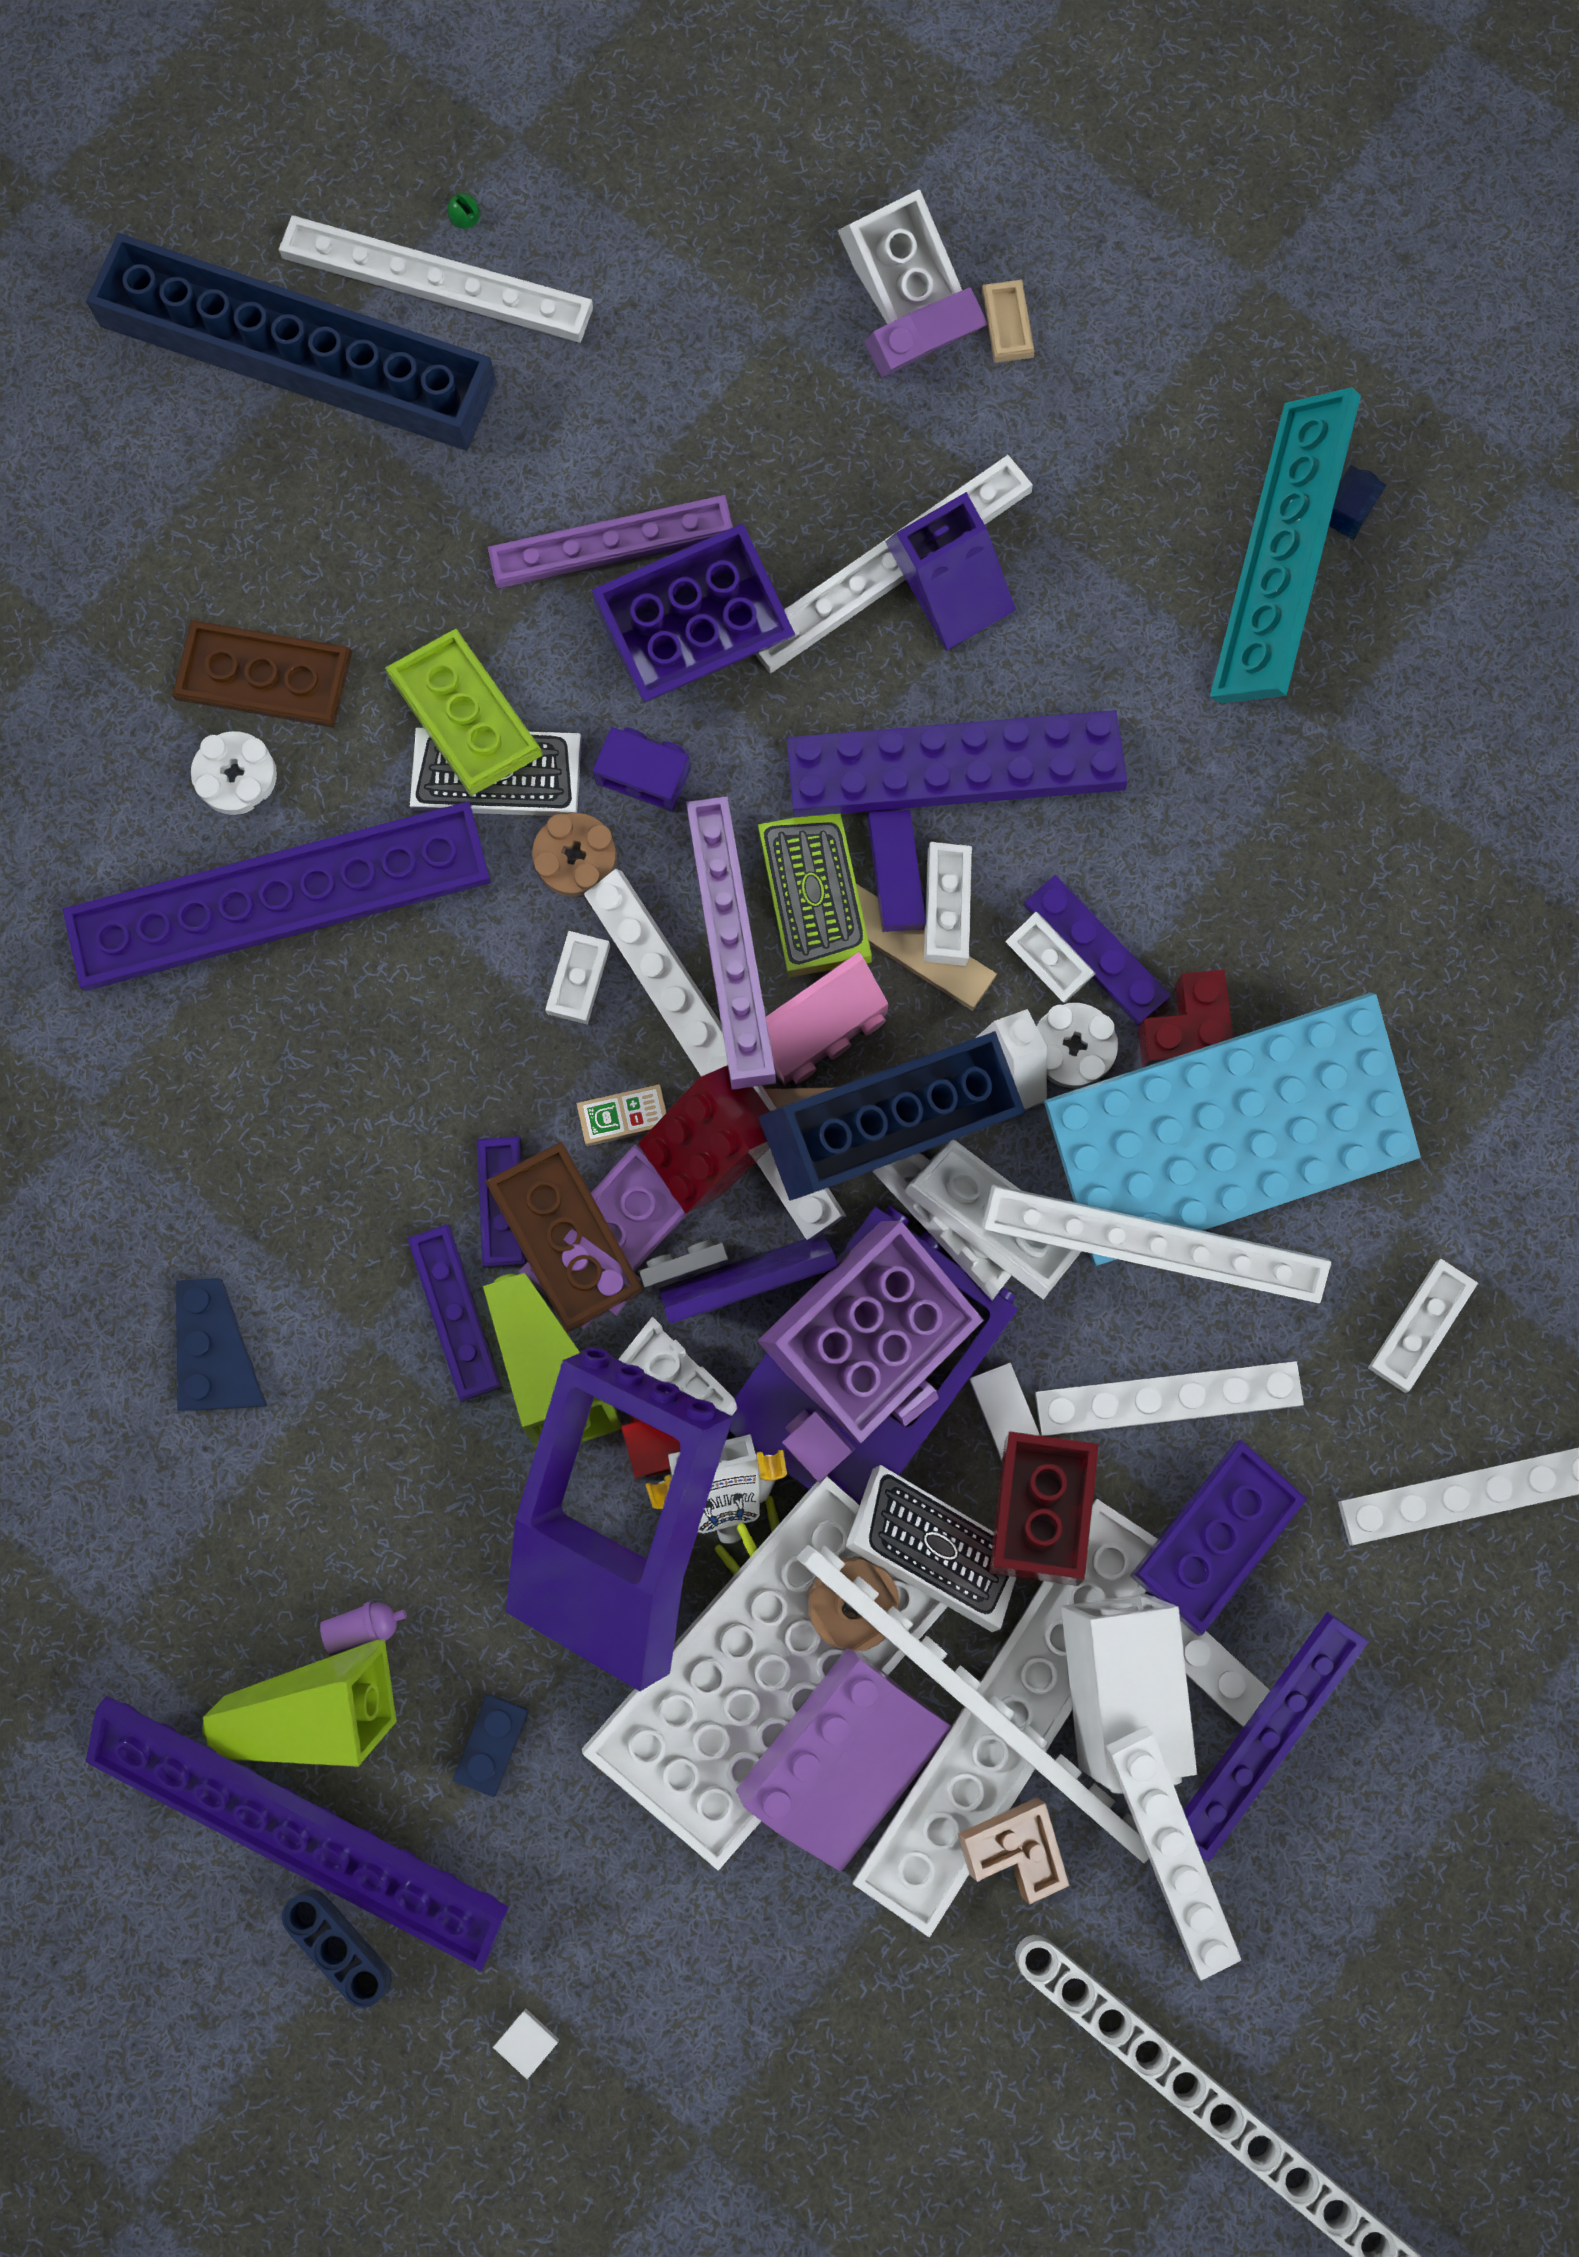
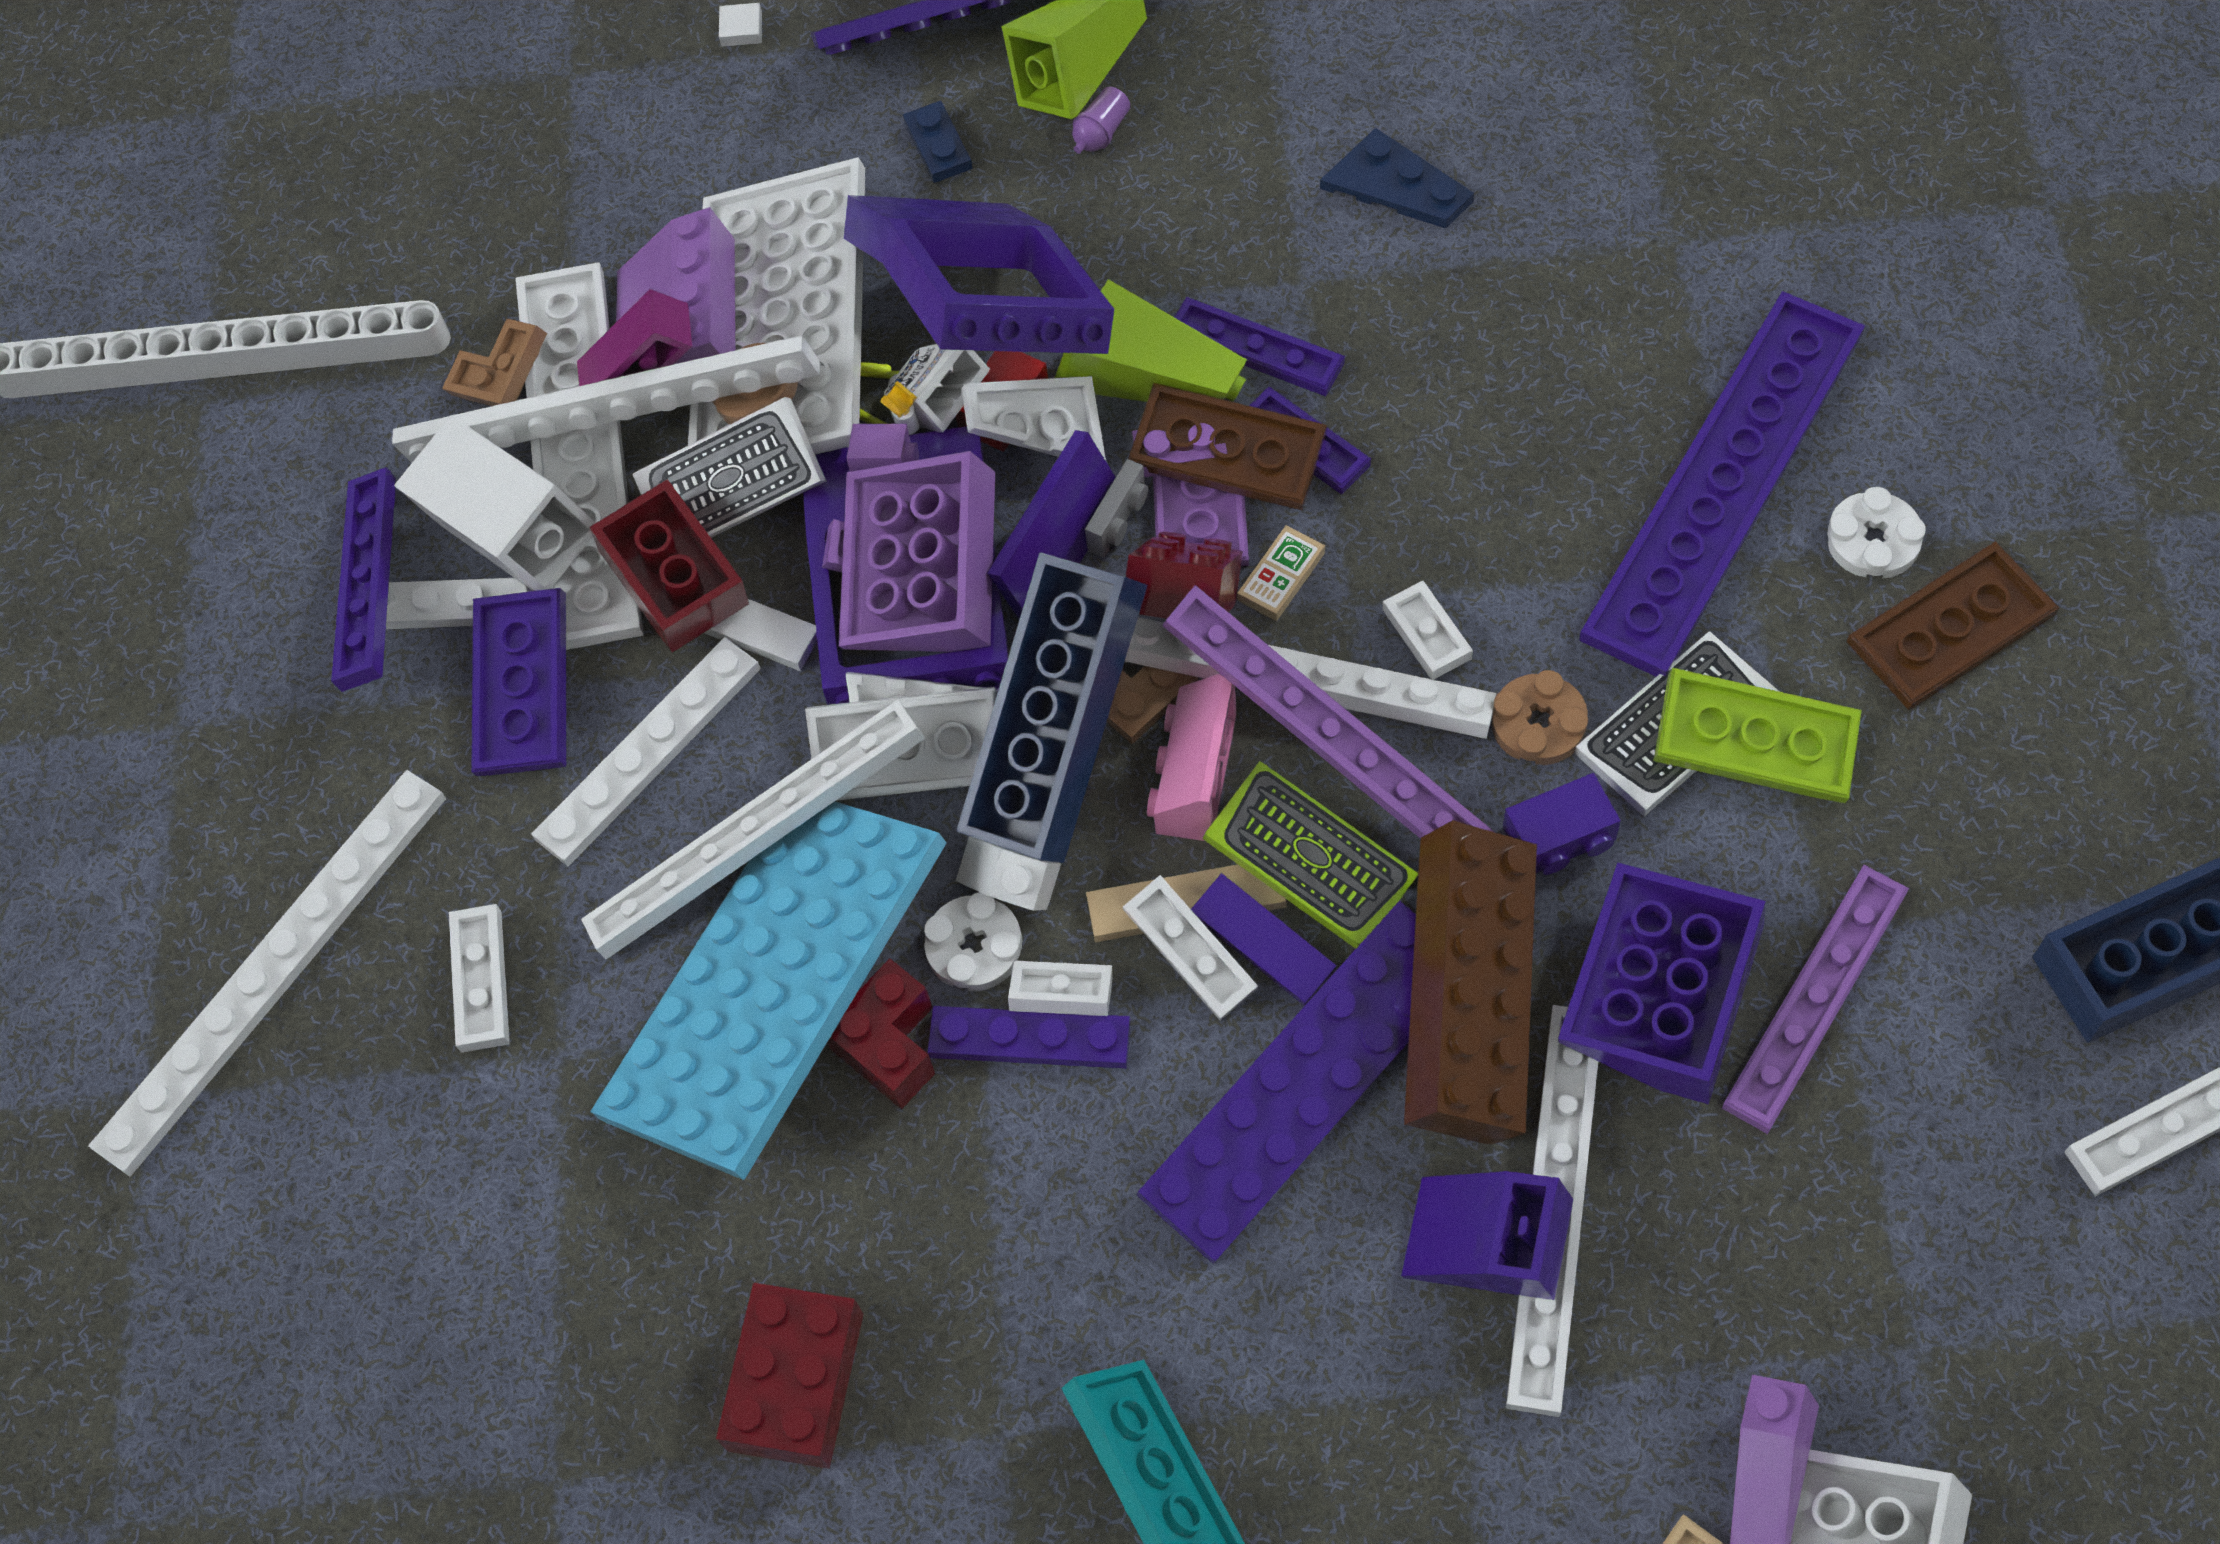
camera: 140 degrees right, 15 degrees down
(808, 711) = (1471, 984): none -> reddish brown brick
(918, 1719) = (643, 339): none -> magenta brick
(1173, 1852) = (374, 436): white plate -> none
(1432, 865) = (790, 1375): none -> dark red brick

